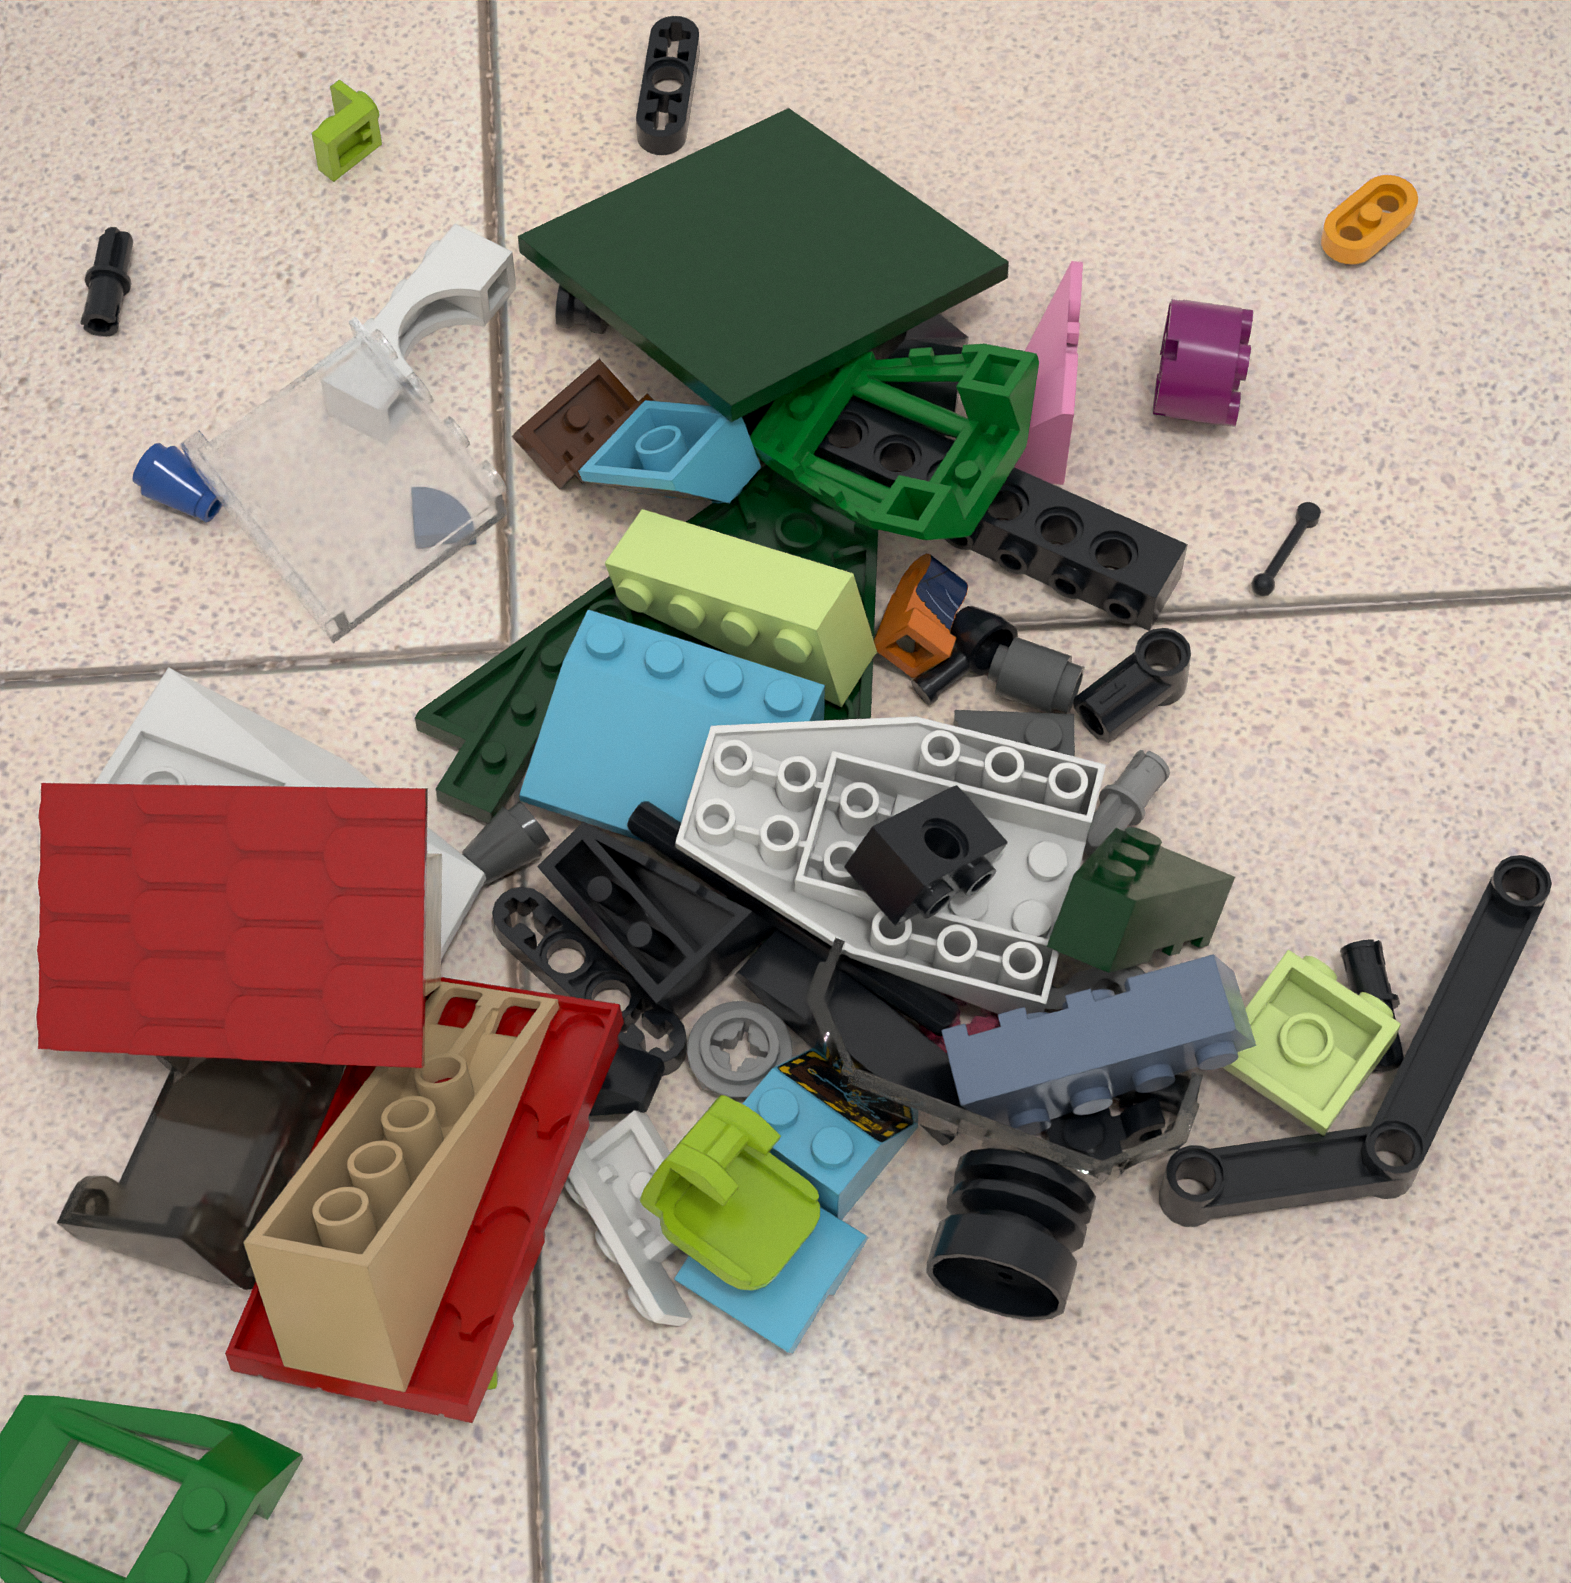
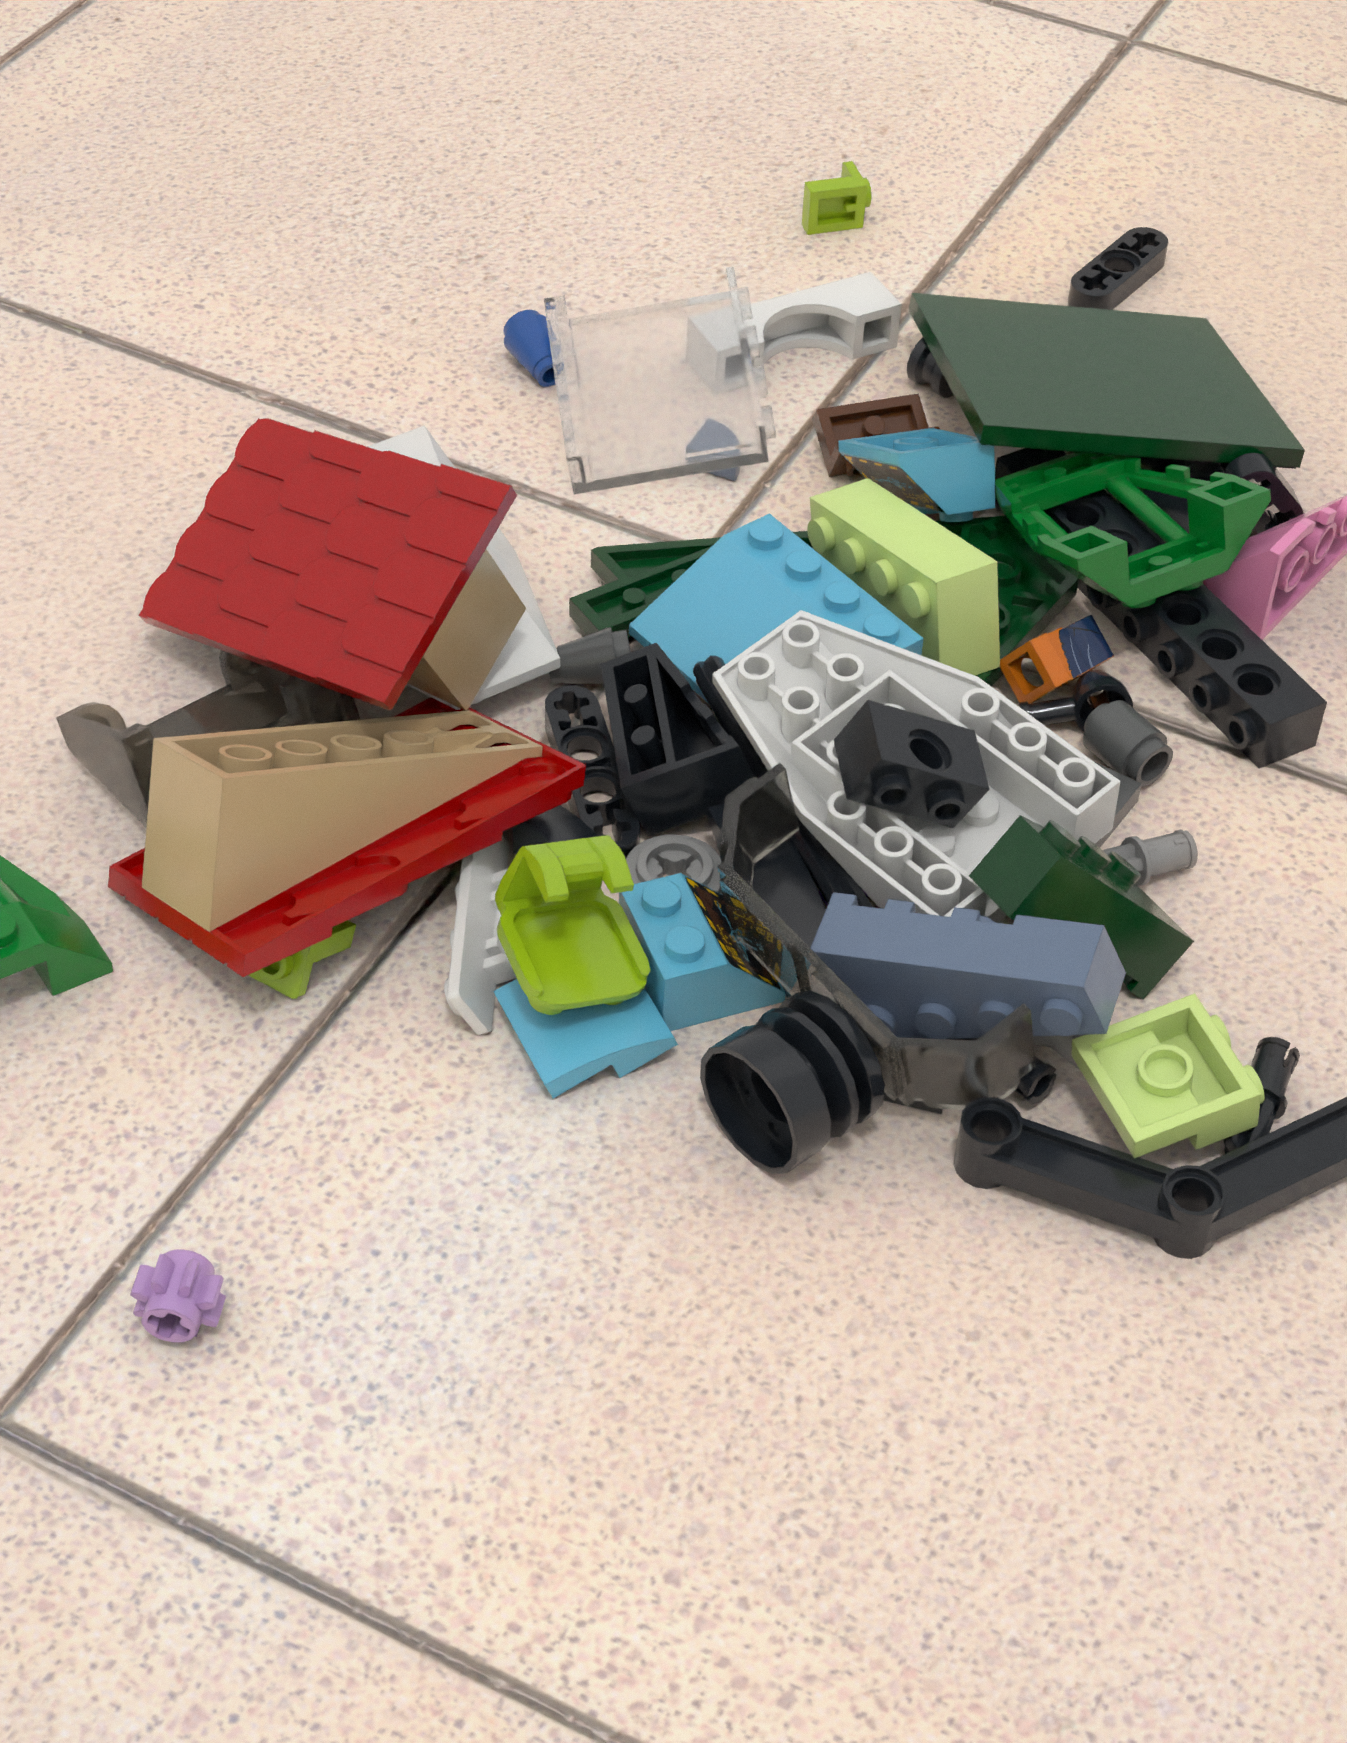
camera: 30 degrees right, 15 degrees down
(107, 283) = (585, 220): black axle -> none
(985, 318) = (1262, 470): none -> black beam
(1134, 687) = (1232, 787): black piece -> none

